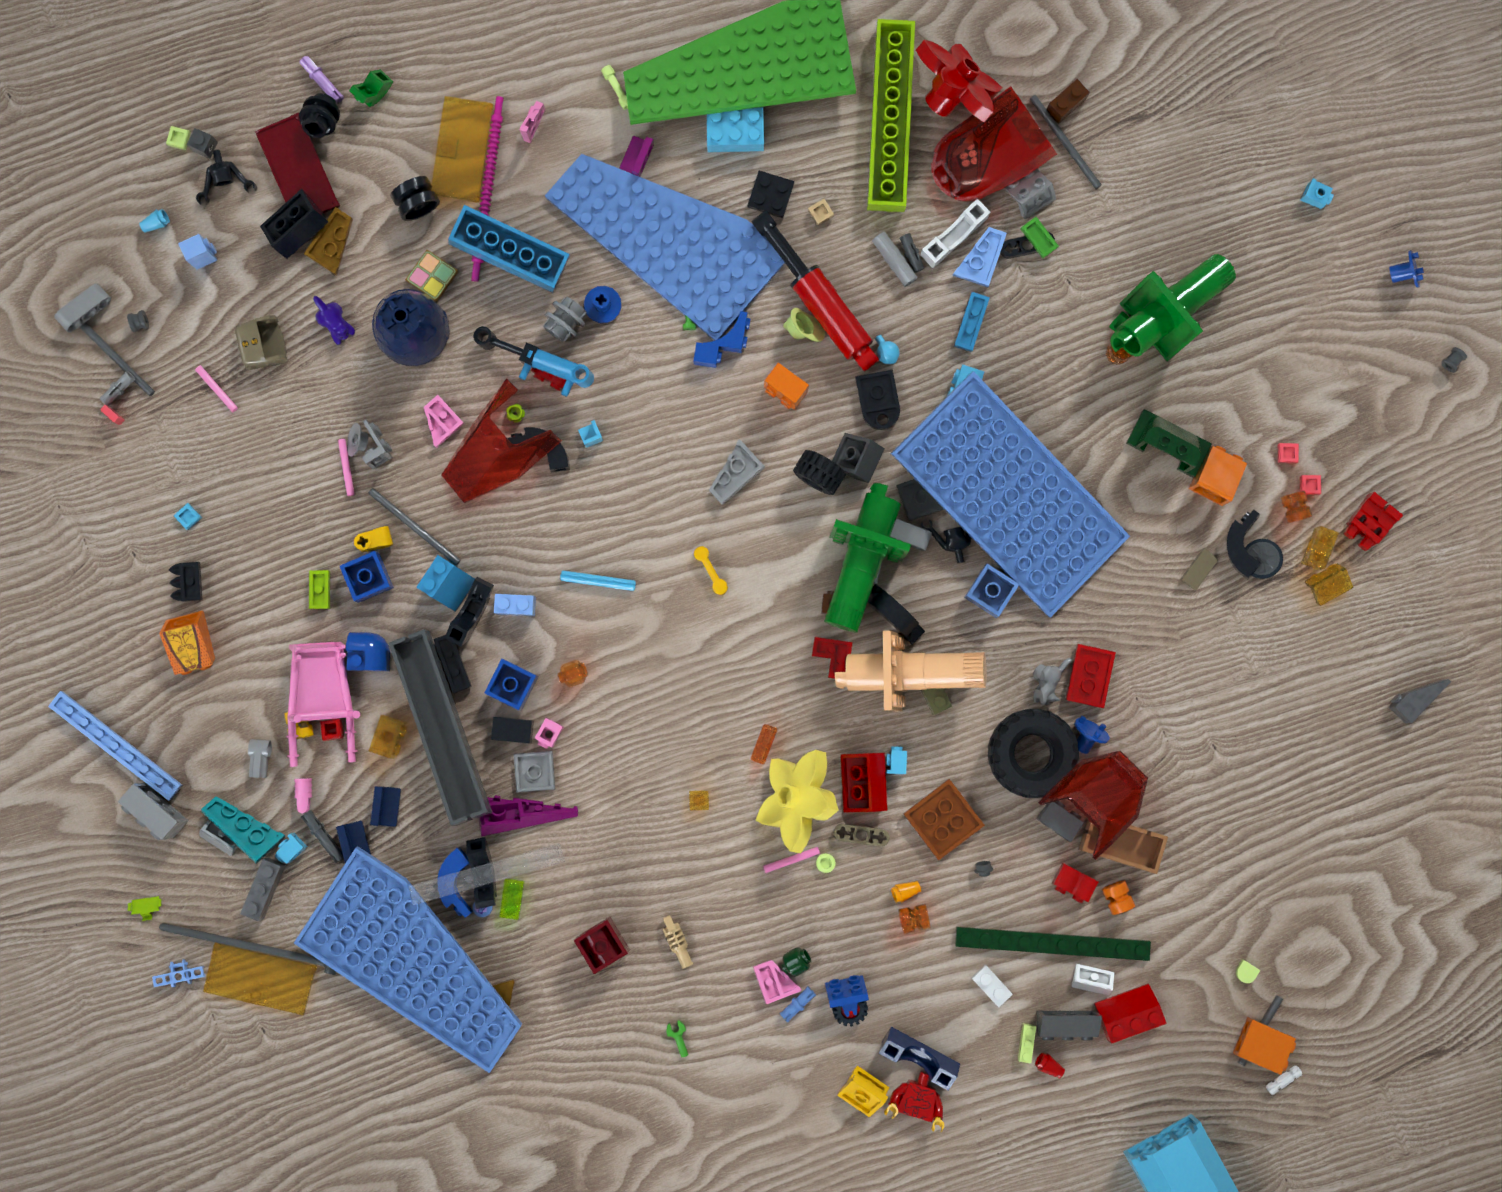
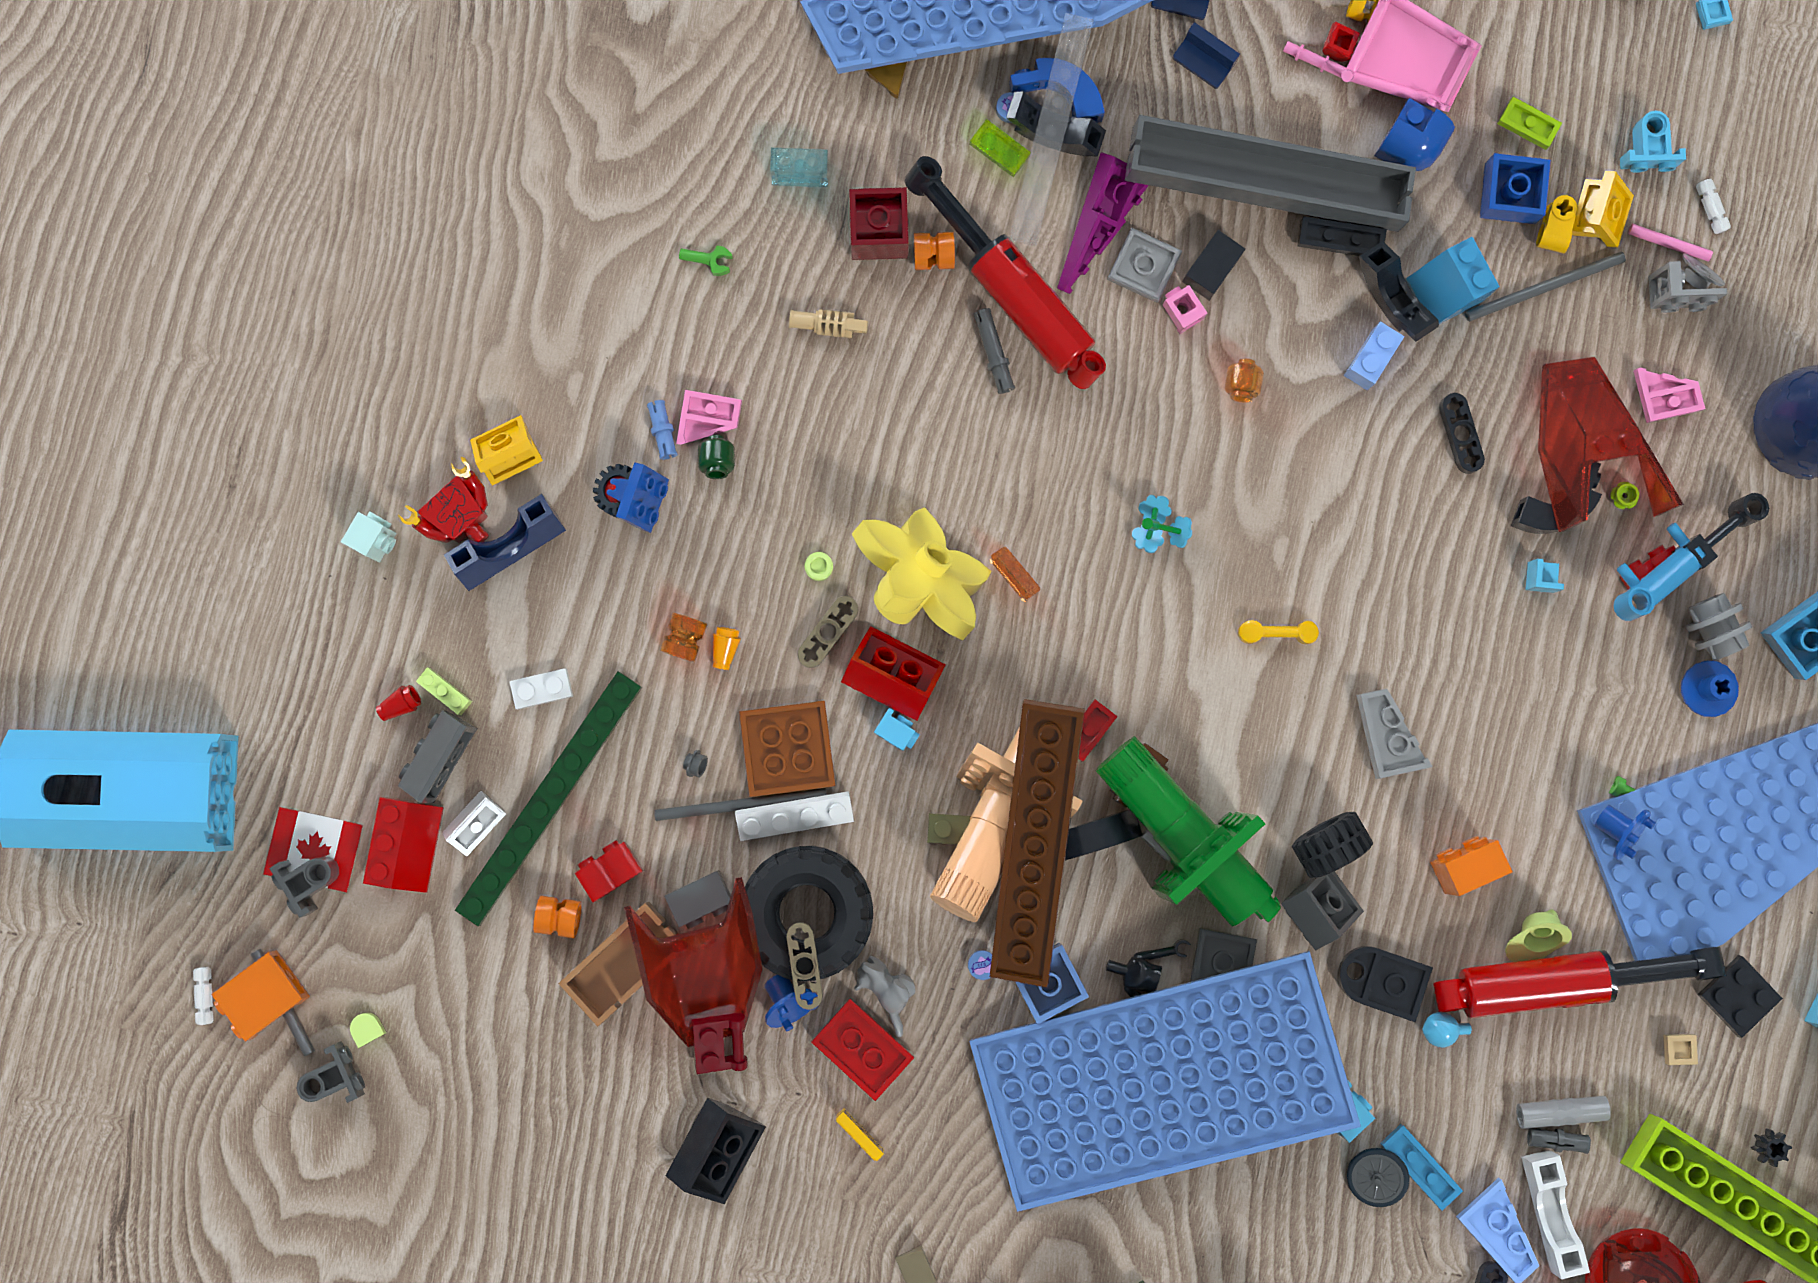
camera: 115 degrees right, 0 degrees up
(295, 508) = (1650, 148): none -> medium azure pin
(310, 454) = (1713, 206): none -> white axle
(349, 517) = (1603, 209): none -> yellow bracket
(380, 745) = (1291, 90): clear yellow brick -> none
(511, 684) = (1273, 294): blue brick -> none
(524, 541) = (1448, 415): none -> black beam
(592, 843) = (1015, 285): none -> red piece
(592, 1013) = (799, 167): none -> clear light blue window
(597, 580) = (1345, 480): medium azure axle -> none
(598, 902) = (934, 251): none -> orange wheel
(641, 828) = (997, 362): none -> dark grey pin
(695, 678) = (1150, 533): none -> medium azure plant
(699, 800) = (990, 450): clear yellow plate -> none
(708, 353) = (1567, 835): blue arch -> none
(715, 311) = (1623, 829): none -> blue piece
(792, 859) = (847, 525): bright pink bar -> none
(847, 138) = (1777, 1142): none -> black gear
(911, 534) = (1182, 918): light grey beam -> none
(920, 644) = (1036, 841): none -> reddish brown plate
(962, 1141) = (370, 536): none -> light aqua brick
(980, 792) = (794, 816): none -> white plate
(991, 343) = (1378, 1177): none -> dark grey wheel
(991, 828) = (733, 805): none -> dark grey piece
(1002, 634) = (980, 964): none -> medium blue tile
(1073, 723) = (815, 986): none -> dark tan beam
(1138, 766) = (709, 1043): none -> dark red plate
(1139, 650) = (859, 1134): none -> yellow tile
(1162, 1066) = (308, 836): none -> red sticker
(1185, 1059) = (303, 882): none -> dark grey pin
(1197, 727) = (715, 1151): none -> black slope
(1285, 974) = (333, 1077): none -> dark grey pin

